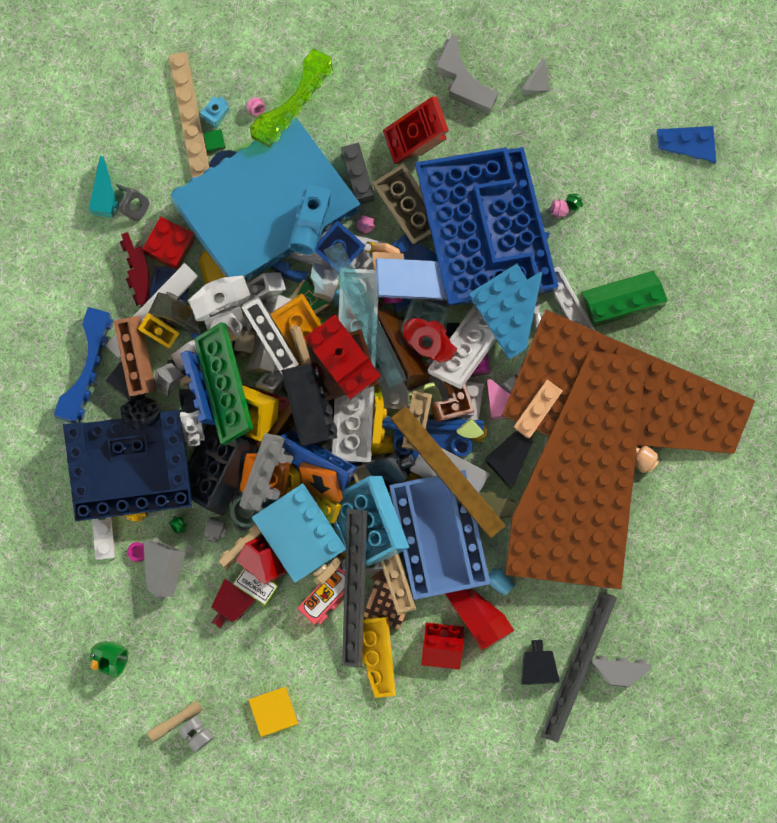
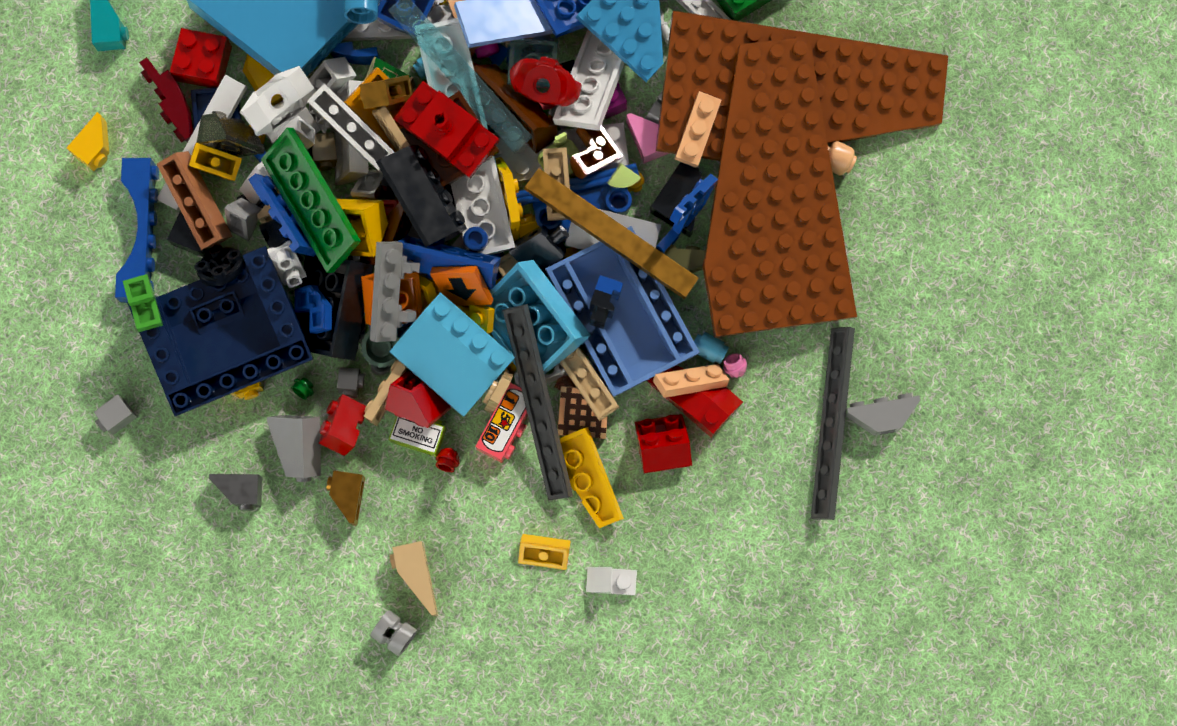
camera: 15 degrees left, 0 degrees up
(29, 506) = (114, 415): none -> light grey brick
(67, 288) = (91, 143): none -> yellow slope
(75, 429) = (143, 303): none -> bright green slope
(103, 539) = (217, 429): white plate -> none
(109, 590) = (240, 489): none -> flat silver slope
(109, 658) = (262, 571): green piece -> none
(132, 194) = (134, 27): dark grey piece -> none
(136, 552) = (261, 434): dark pink tile -> none
(163, 728) = (352, 637): tan piece -> none
(189, 616) = (347, 493): none -> pearl gold slope
(197, 565) = (340, 429): none -> red brick
(203, 459) = (312, 300): none -> blue tile
(223, 685) = (413, 568): none -> tan slope
(230, 604) = (393, 464): dark red torso -> none
(273, 612) = (447, 460): none -> red plate
(273, 711) = (480, 579): yellow tile -> none
(304, 316) = (385, 92): none -> pearl gold slope
(324, 281) = (400, 51): white slope -> none
(327, 703) = (544, 551): none -> yellow slope
(342, 447) = (475, 239): none -> blue tile
(373, 741) = (611, 581): none -> white slope
(424, 523) = (600, 303): none -> black hips
(477, 603) = (691, 380): none -> light nougat plate
(511, 471) = (687, 210): none -> blue wing
(515, 600) = (735, 365): none -> bright pink plate
(539, 666) = (785, 435): black torso -> none

